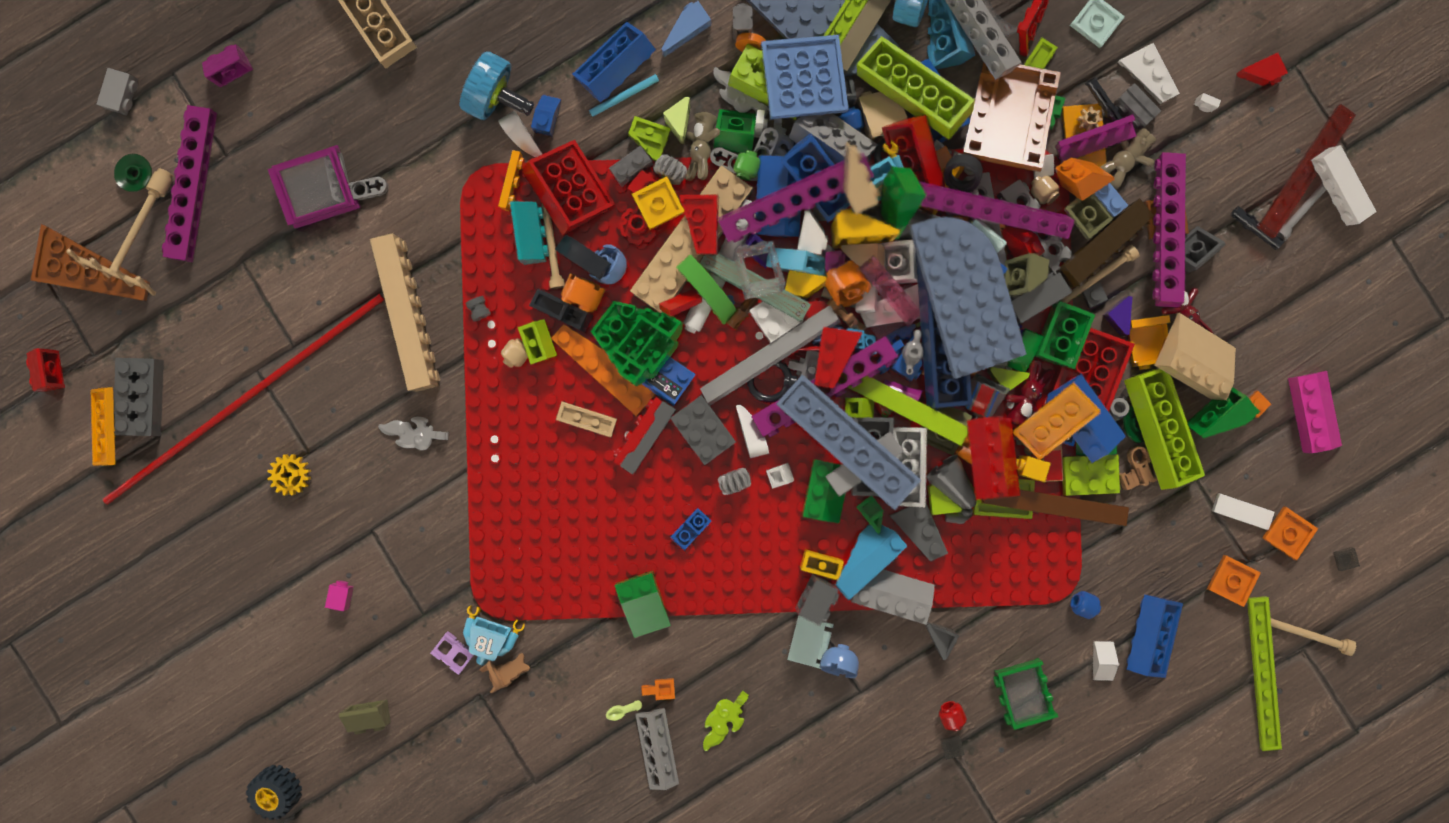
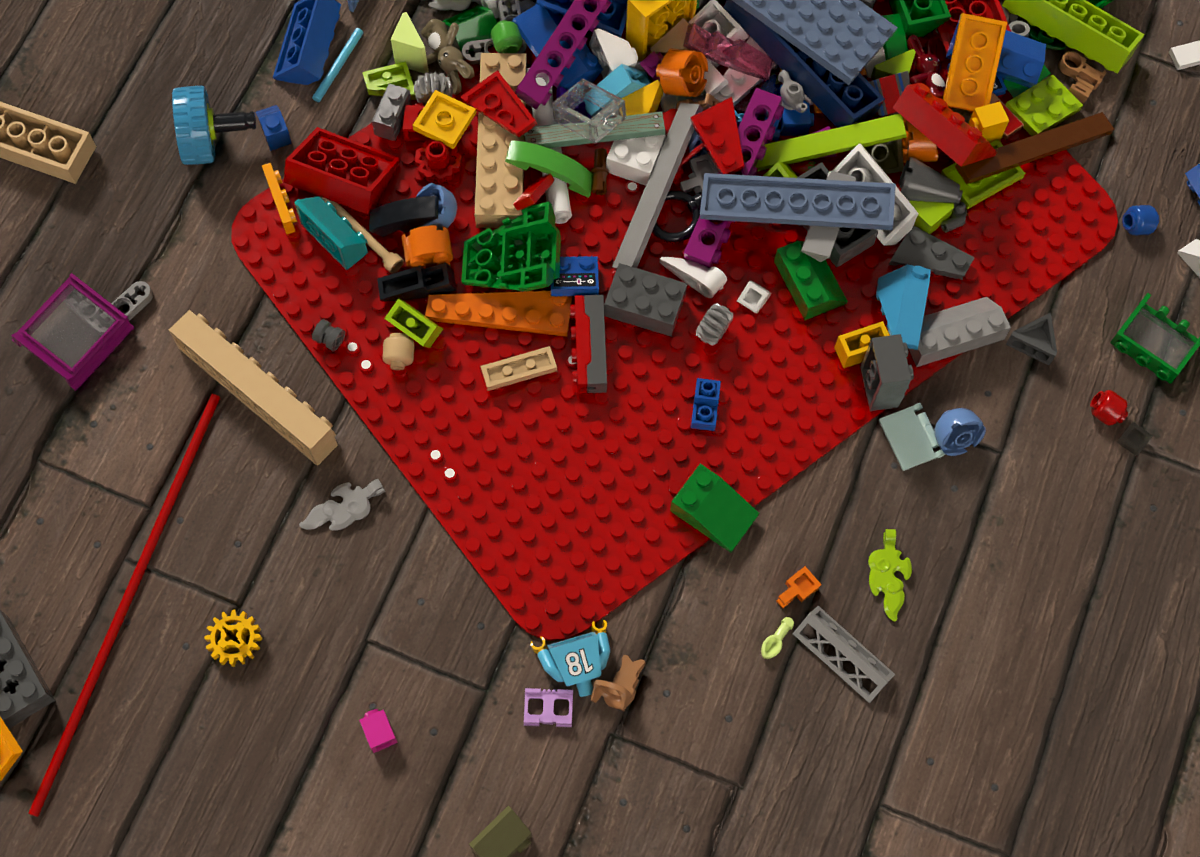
camera: 40 degrees left, 20 degrees down
(519, 134) = (248, 153): white piece -> none
(872, 513) = (871, 268): green slope -> none

